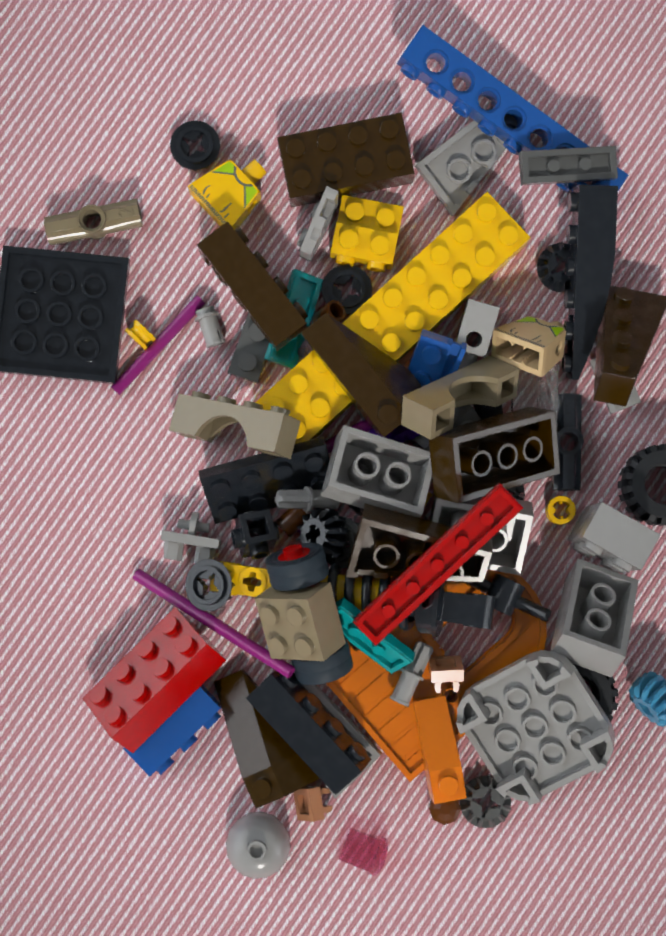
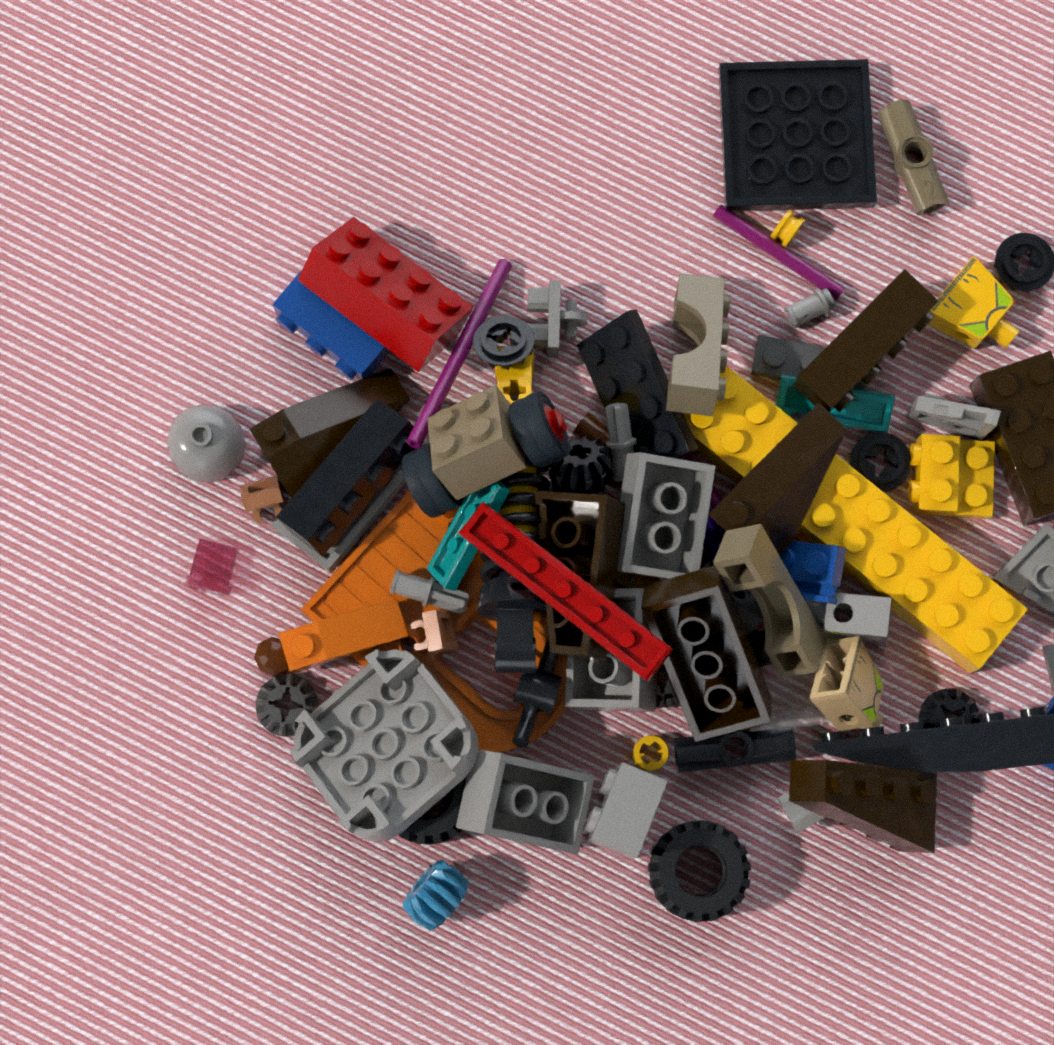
camera: 80 degrees right, 5 degrees down
(255, 534) = (572, 388): black brick -> none
(332, 308) = (851, 447): reddish brown hinge -> none

